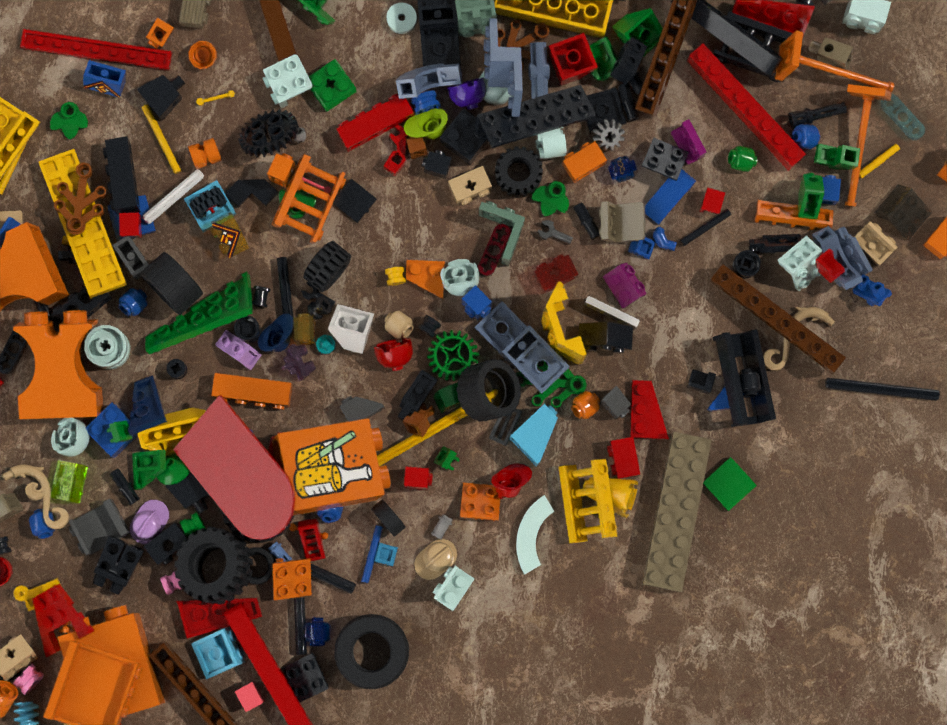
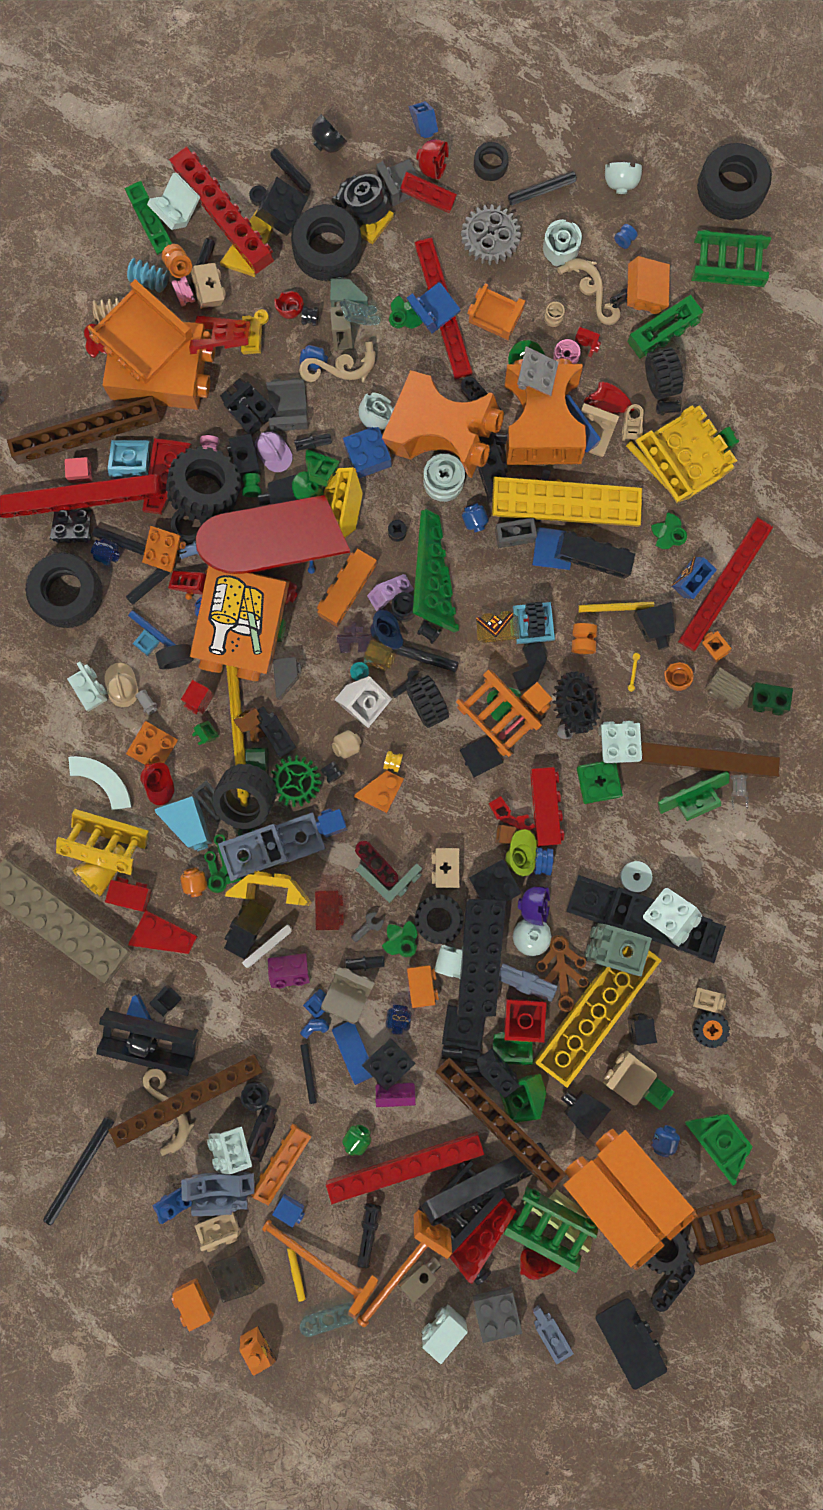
camera: 115 degrees right, 0 degrees up
(68, 481) = (339, 396): clear neon green bracket -> none
(80, 202) = (586, 505): dark orange plant -> none
(119, 431) = (358, 452): green tile -> none
(130, 224) = (545, 542): red panel -> none
(146, 406) = (372, 488): dark blue wing -> none
(172, 283) = (474, 555): black tyre -> none
(173, 196) = (556, 593): white axle -> none
(319, 308) = (394, 679): black wheel -> none
(394, 353) = (321, 728): red cylinder -> none
(427, 77) = (567, 871): sand blue arch -> none
(436, 164) = (481, 846): black brick -> none
(460, 277) = (363, 819): light aqua cylinder -> none
(503, 67) = (541, 946): sand blue bracket -> none
(603, 131) = (433, 1028): light grey gear -> none
(616, 403) = (181, 910): dark grey slope -> none
(712, 201) = (328, 1091): red panel -> none
(729, 484) = (60, 982): green tile -> none
(806, 136) = (350, 1213): blue head -> none
(813, 188) = (296, 1195): green torso -> none
(828, 266) = (211, 1174): red panel -> none
(837, 158) = (316, 1234): green brick -> none

